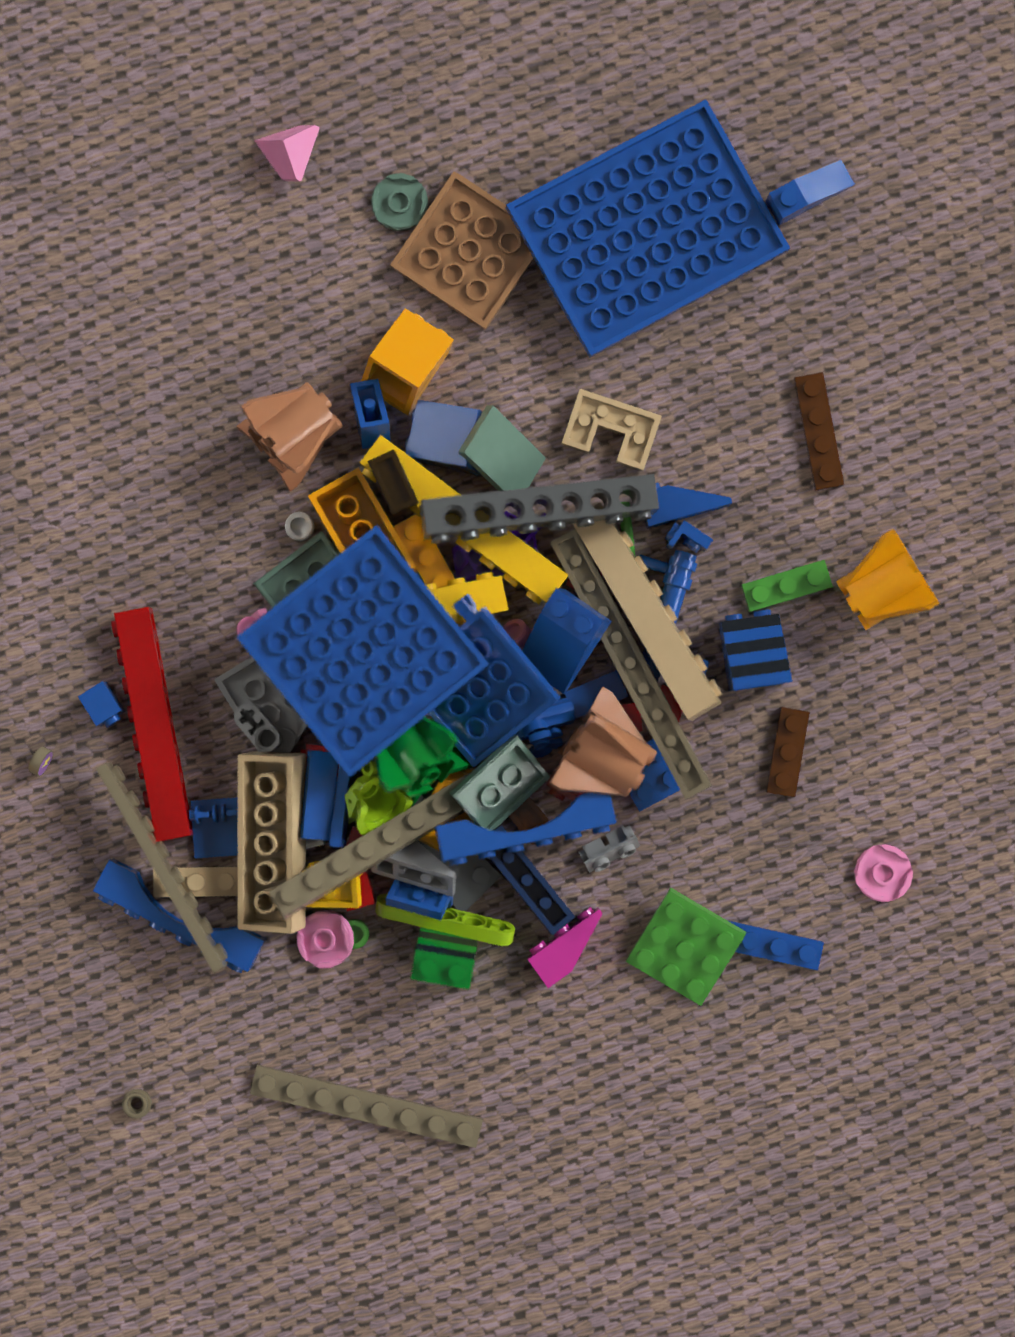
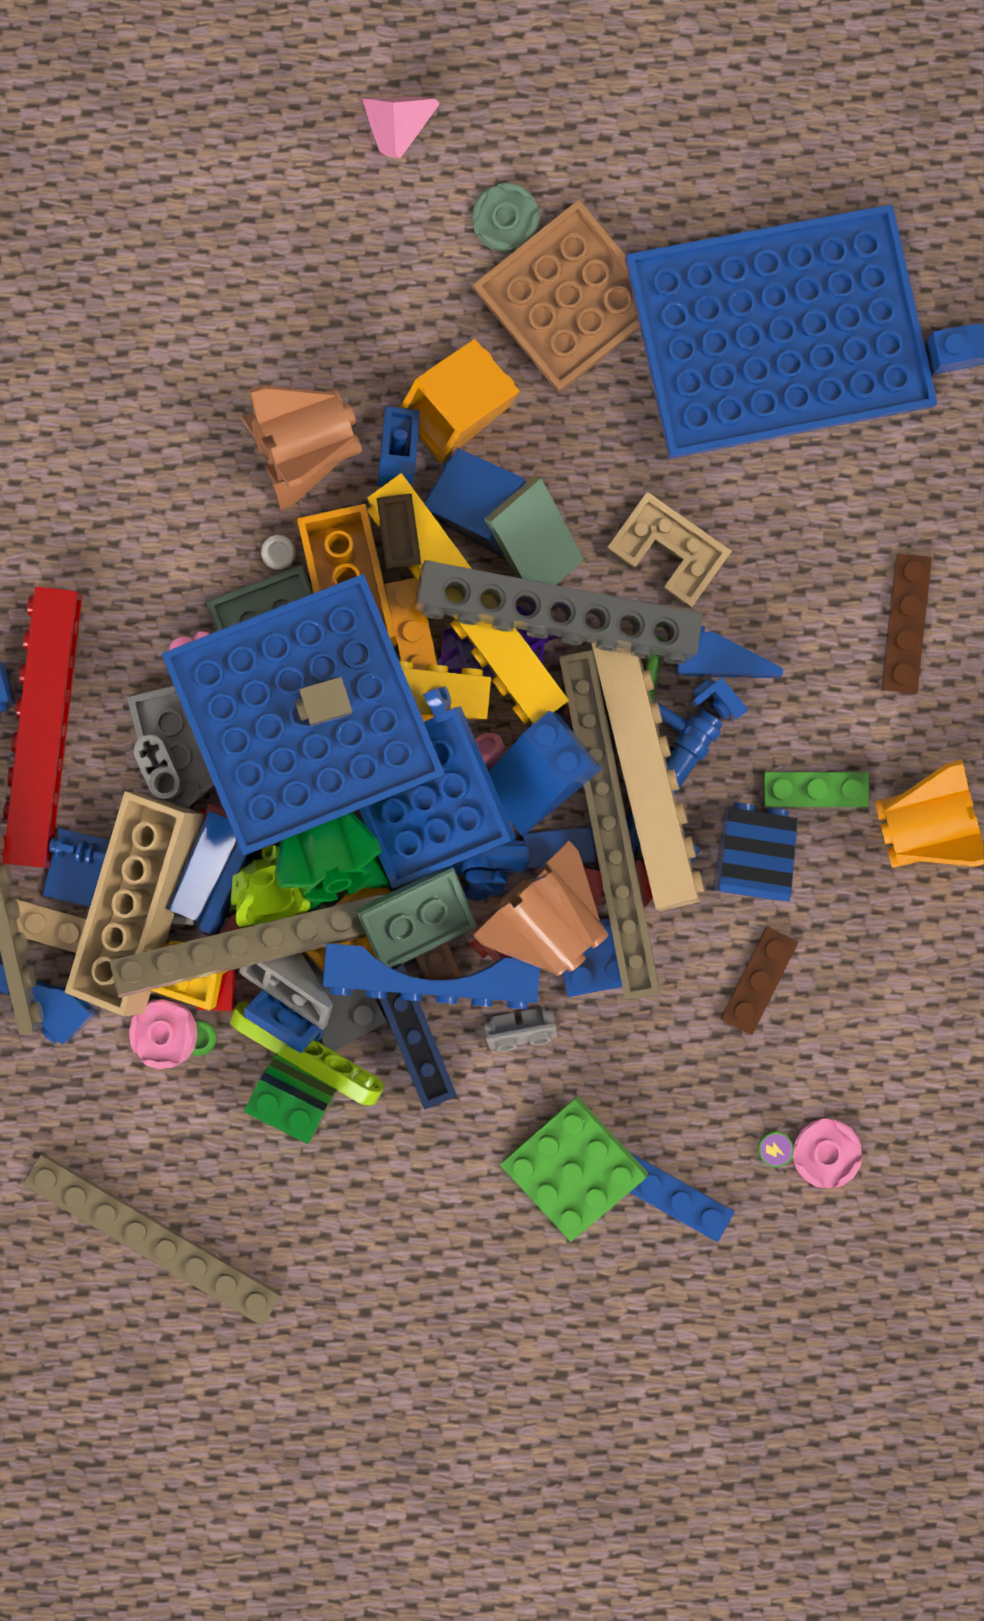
camera: 15 degrees right, 0 degrees up
(377, 636) = (323, 702): none -> dark tan brick
(561, 954) = (425, 1135): dark pink slope -> none
(841, 882) = (775, 1149): none -> medium lavender tile

